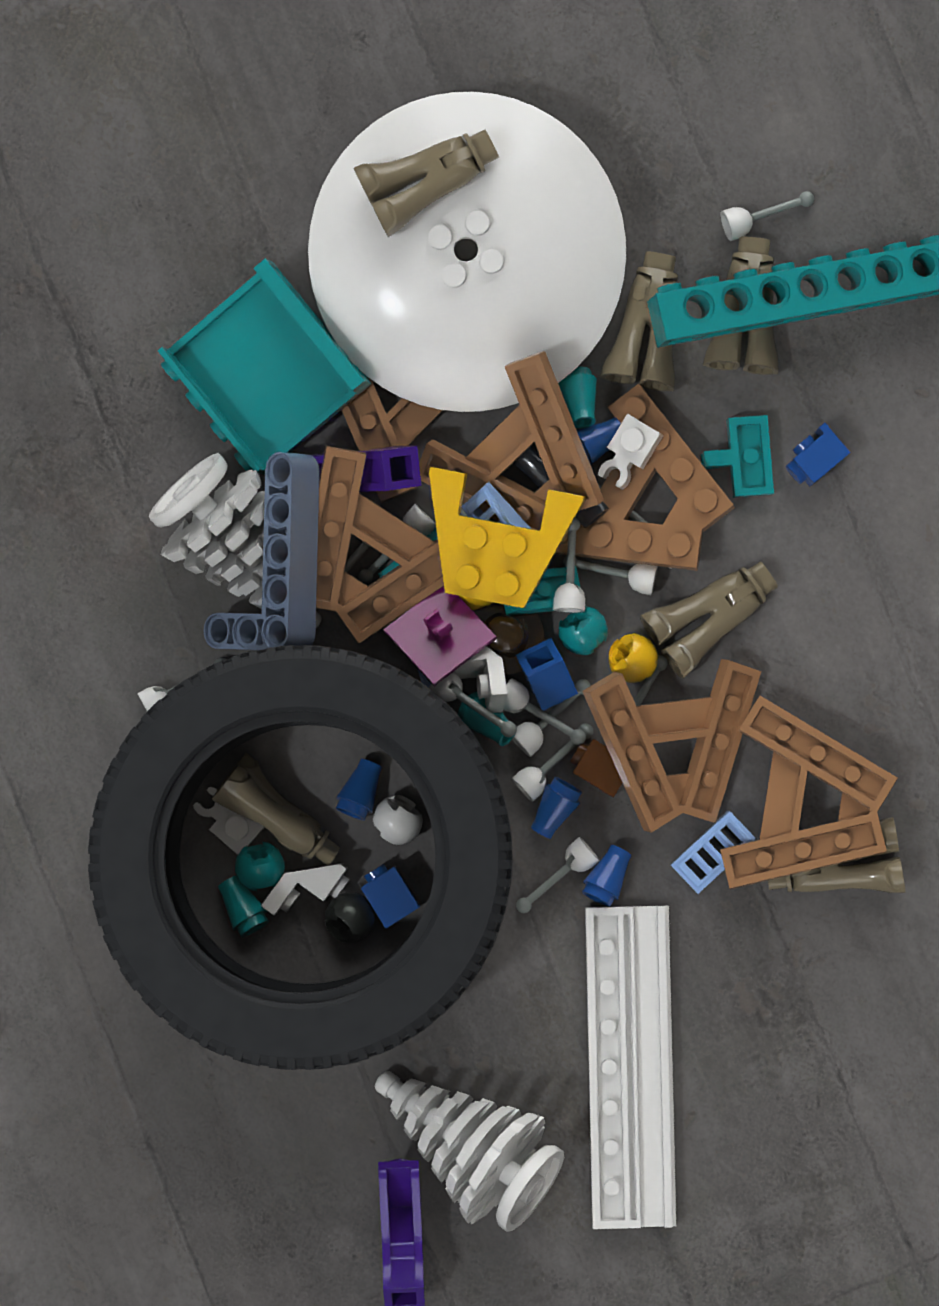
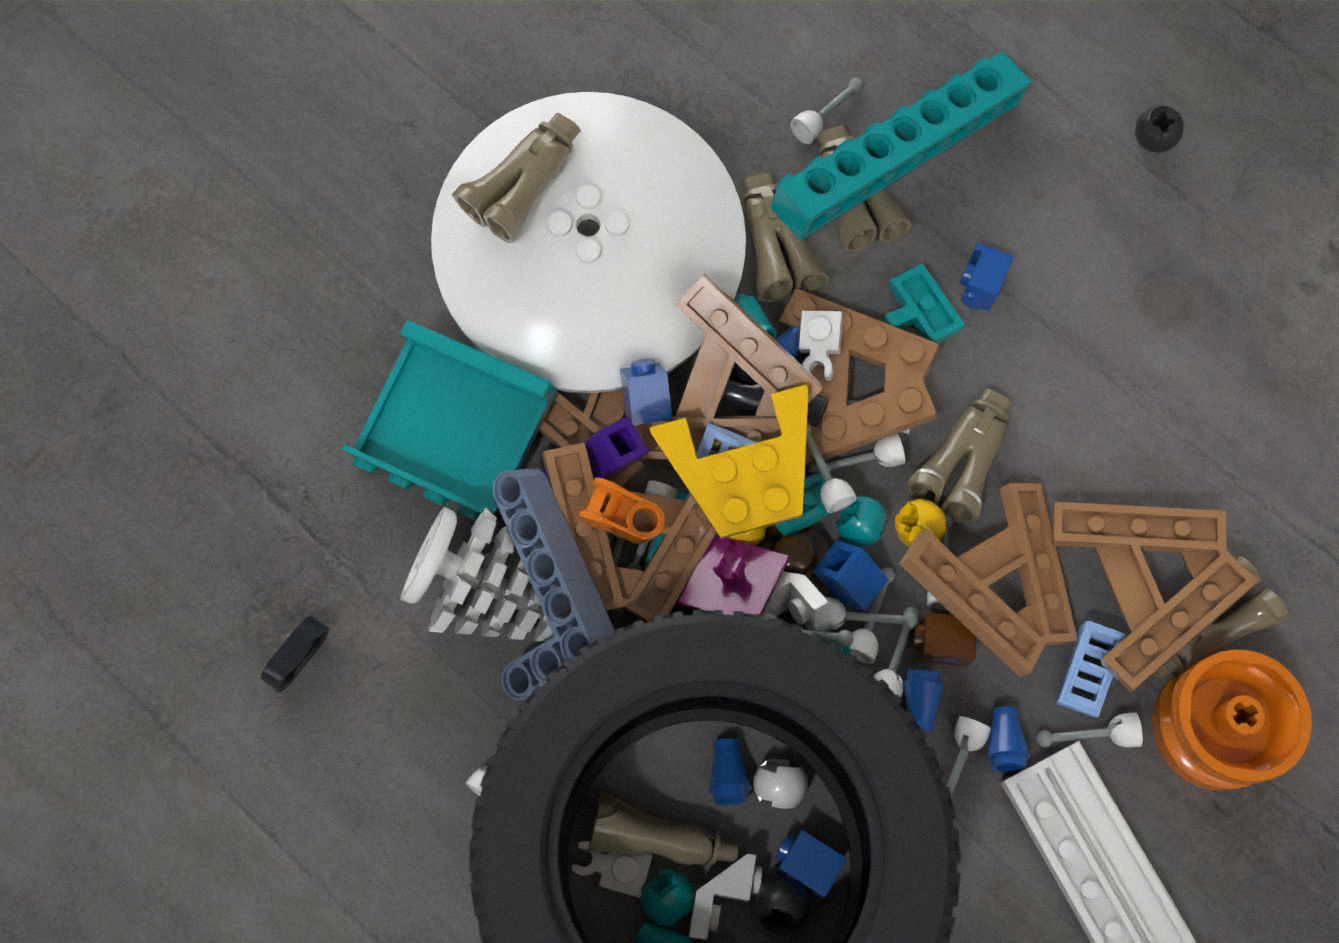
camera: 30 degrees left, 15 degrees down
(42, 513) = (294, 653): none -> black beam
(366, 532) = (619, 512): none -> orange piece
(447, 426) = (646, 392): none -> brick
(710, 914) = (1123, 730): none -> hinge
(830, 945) = (1232, 721): none -> orange piece

